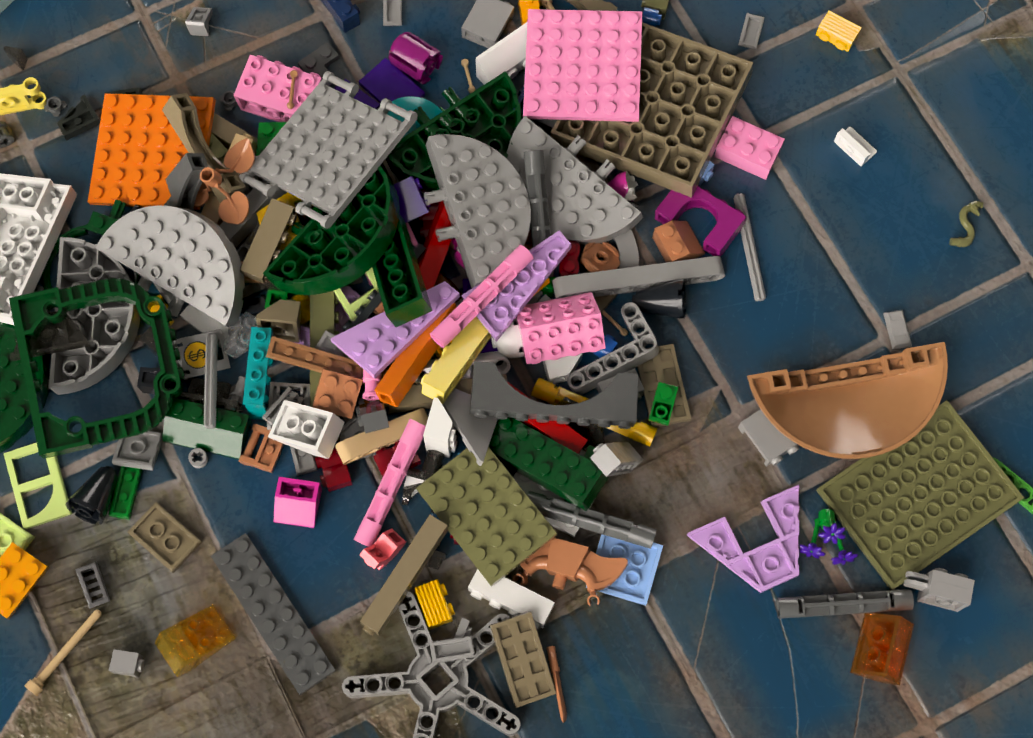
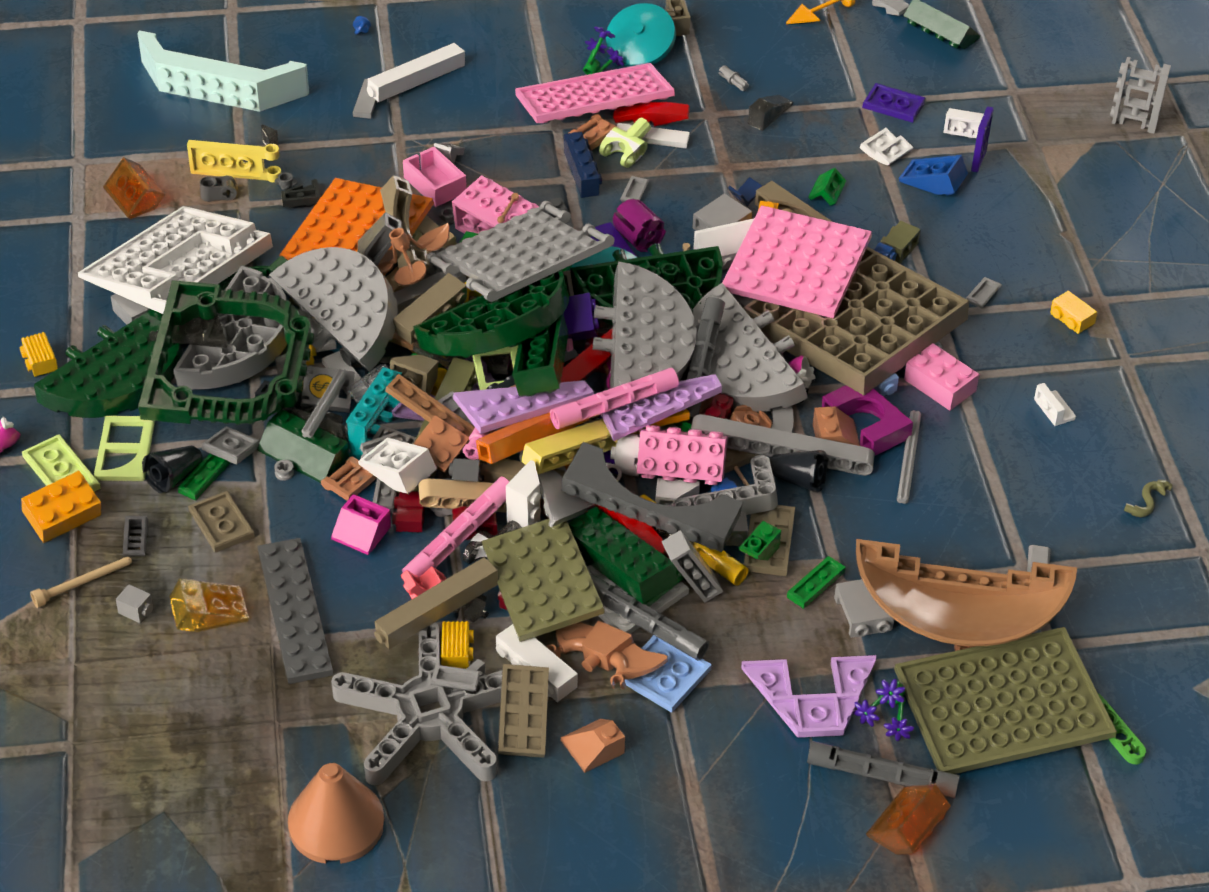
camera: 20 degrees right, 25 degrees down
(199, 58) = (437, 176): none -> bright pink piece
(555, 669) = (549, 755): nougat piece -> none
(591, 663) = (595, 743): none -> nougat slope
(719, 420) = (816, 582): none -> green plate
(941, 588) = (991, 780): light grey brick -> none

